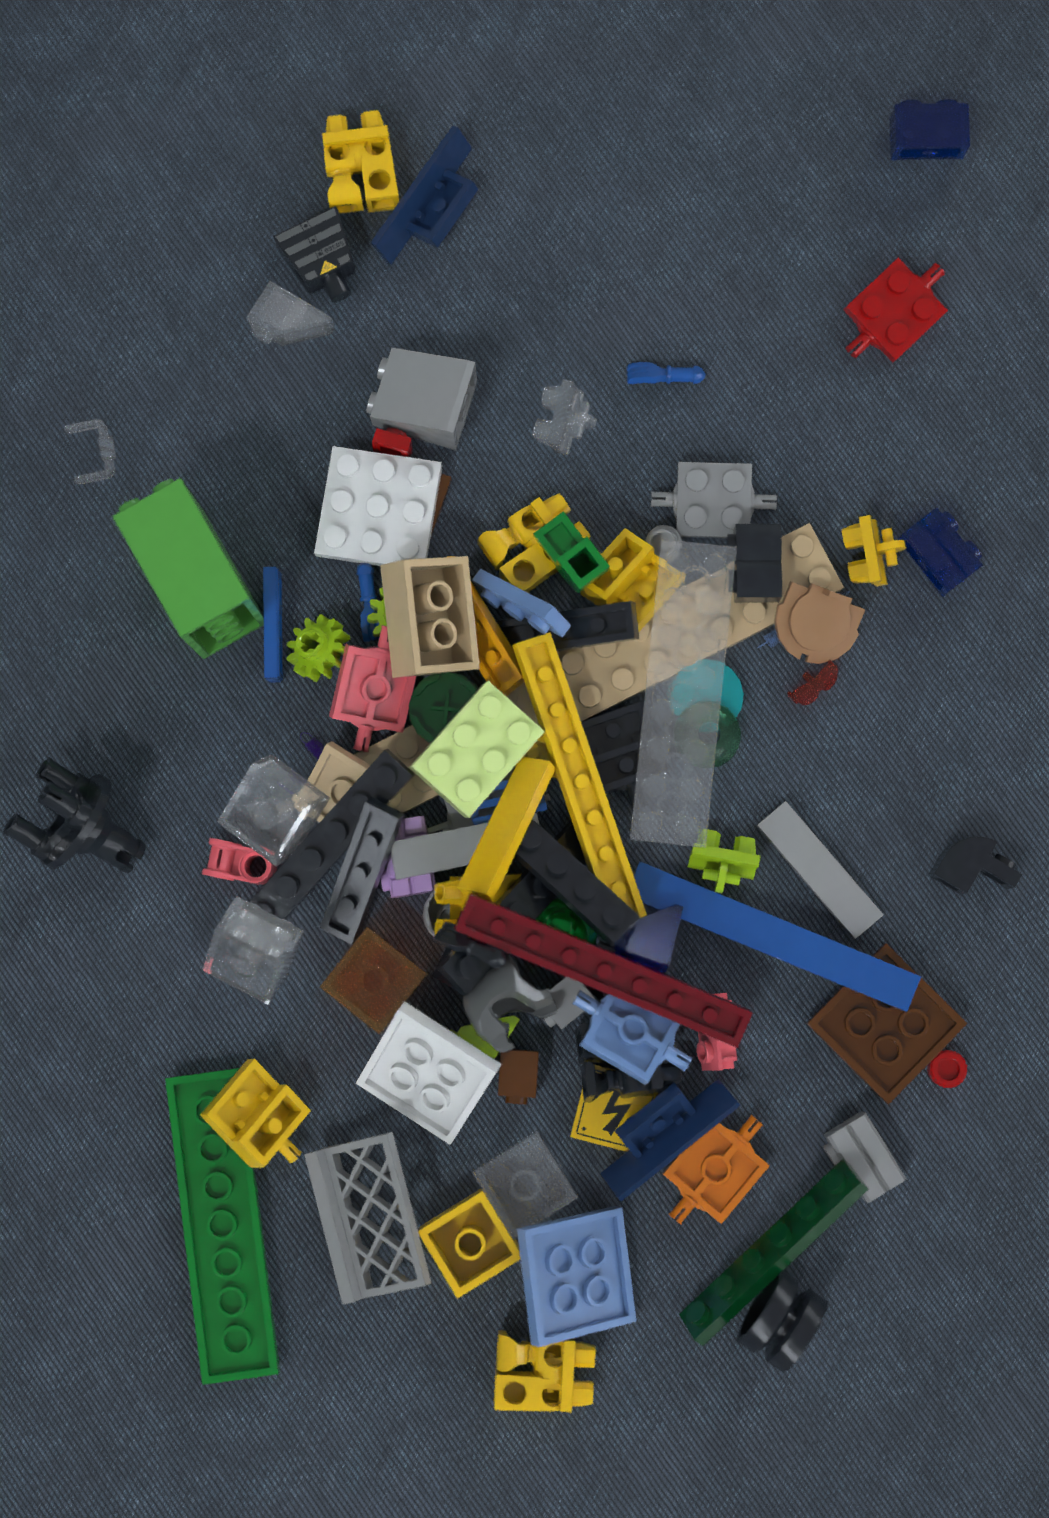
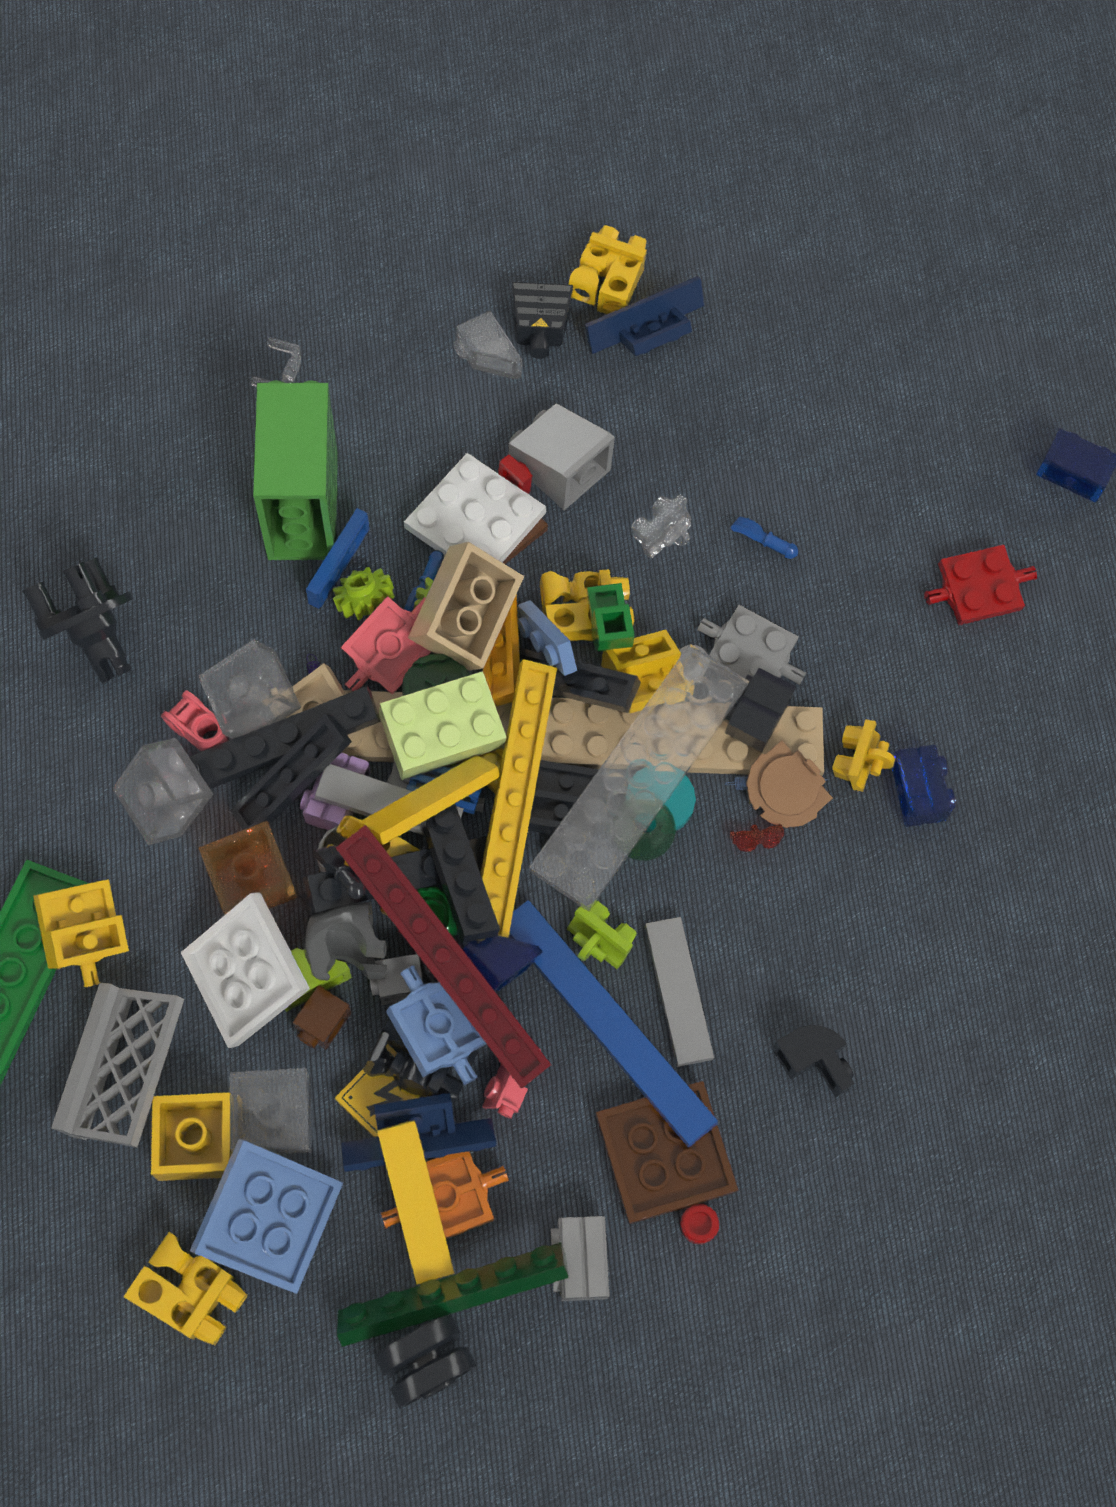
camera: 20 degrees right, 15 degrees down
(697, 1192) = (415, 1202): none -> yellow tile

